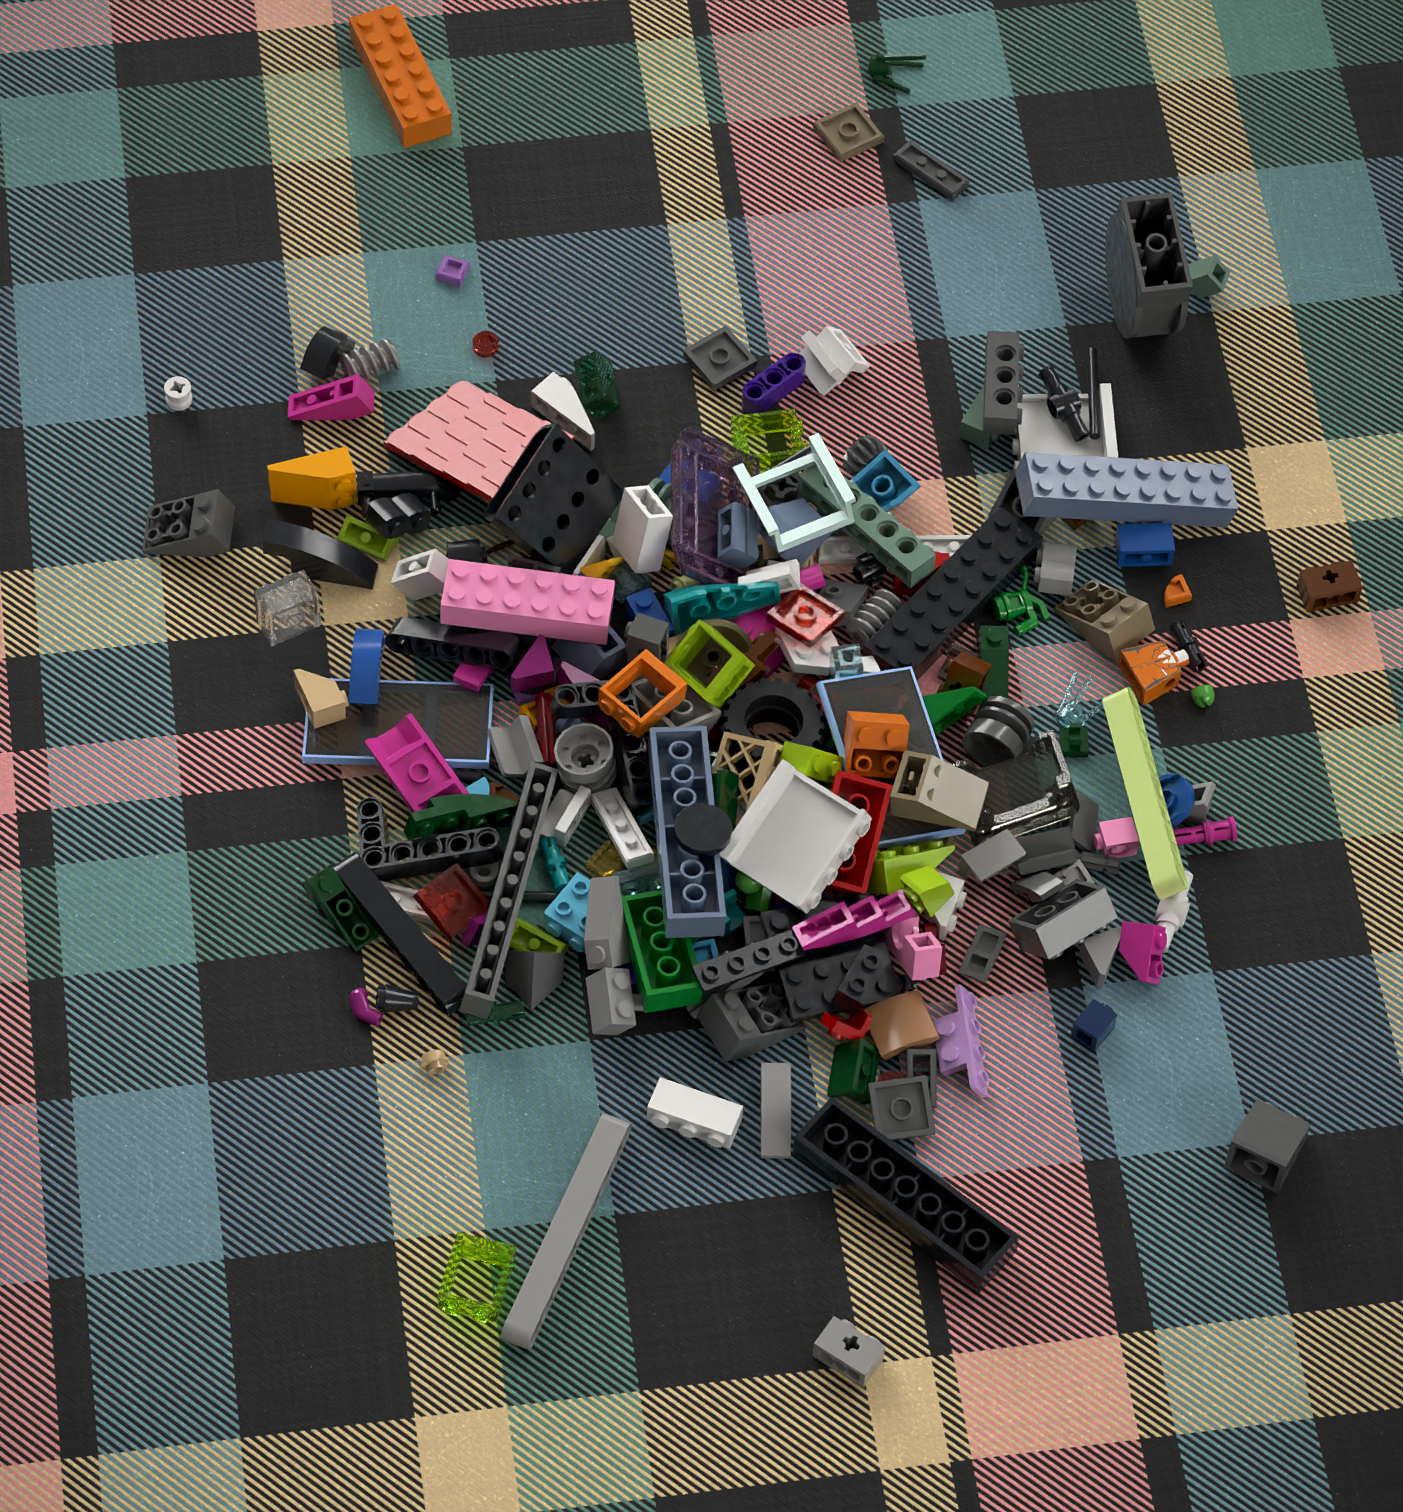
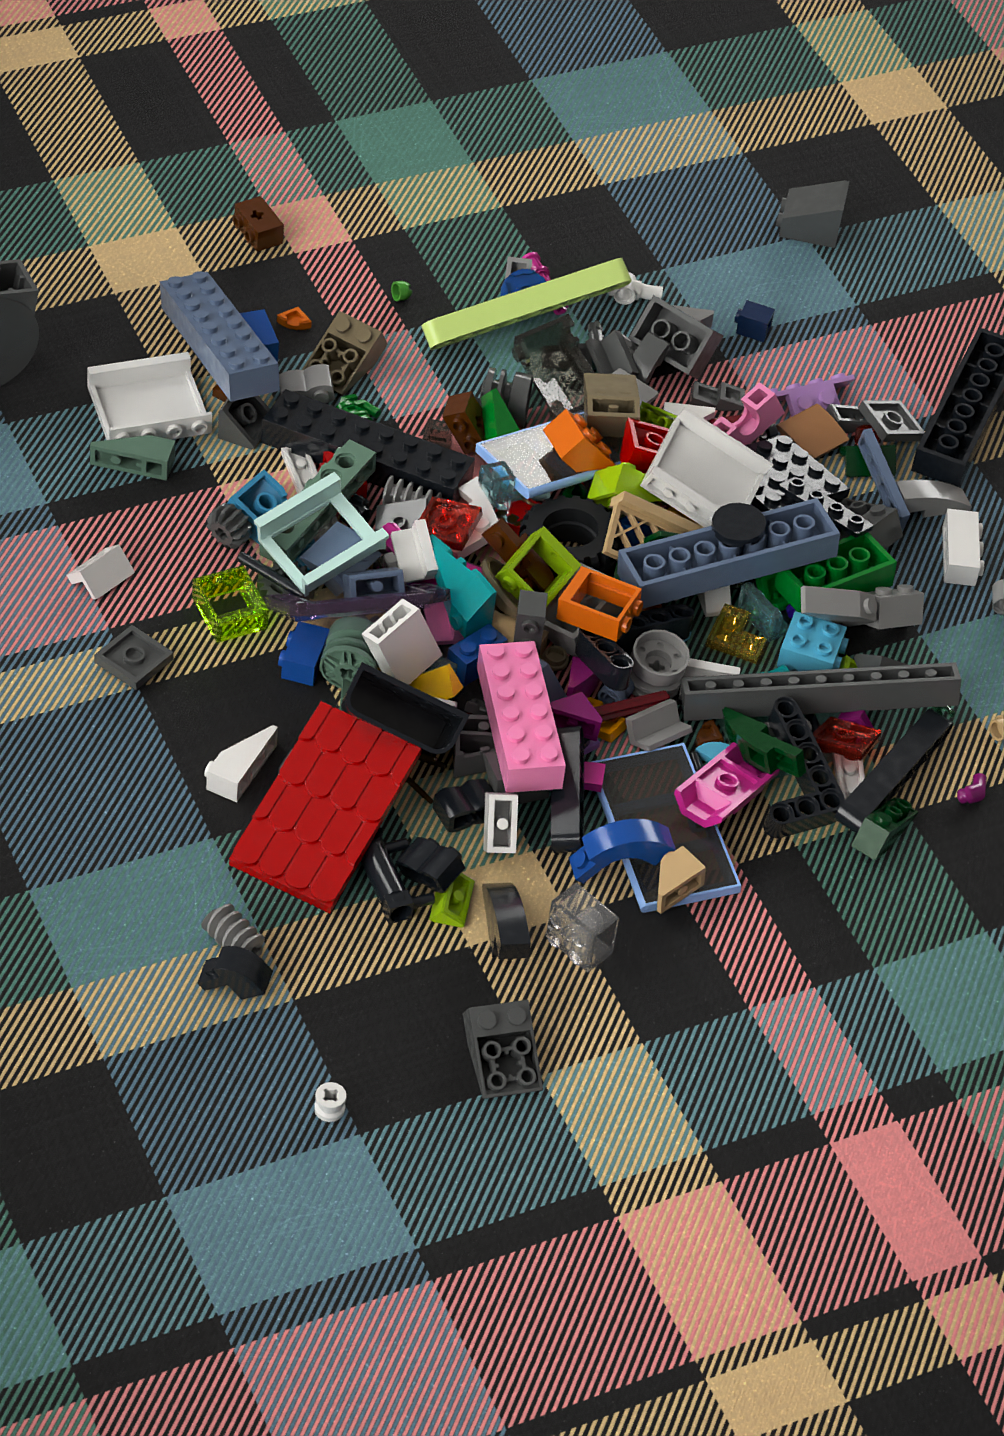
camera: 110 degrees left, 10 degrees down
(315, 480) = (411, 935): light orange slope -> none
(337, 400) = (298, 959): dark pink slope -> none
(395, 999) = (957, 768): black cone -> none
(452, 270) = (78, 898): medium lavender tile -> none
(485, 344) = (170, 851): clear red tile -> none
(597, 384) = (207, 737): clear green brick -> none
(622, 828) = (723, 624): white tile -> none
(773, 383) = (156, 610): dark purple beam -> none
(805, 1056) = (882, 475): none -> sand blue tile
(820, 365) = (121, 579): white panel -> none
(853, 922) = (745, 432): dark pink slope -> none
(853, 1028) = (833, 458): red bracket -> none
(860, 980) = (811, 451): black brick -> none
(926, 890) = (704, 402): lime slope -> none
(994, 649) = (413, 414): dark green slope -> none
(1001, 383) = (120, 429): dark grey brick -> none
(1064, 403) = (117, 399): black pin -> none
(1071, 712) = (455, 364): clear light blue plant -> none
(1074, 741) = (479, 364): dark green tile -> none
(1093, 394) = (94, 385): black bar -> none
(1117, 838) = (582, 323): bright pink brick -> none
(1143, 949) = (675, 290): dark pink slope -> none
(1152, 669) = (392, 317): orange torso -> none
(1189, 644) = (354, 302): black pin -> none

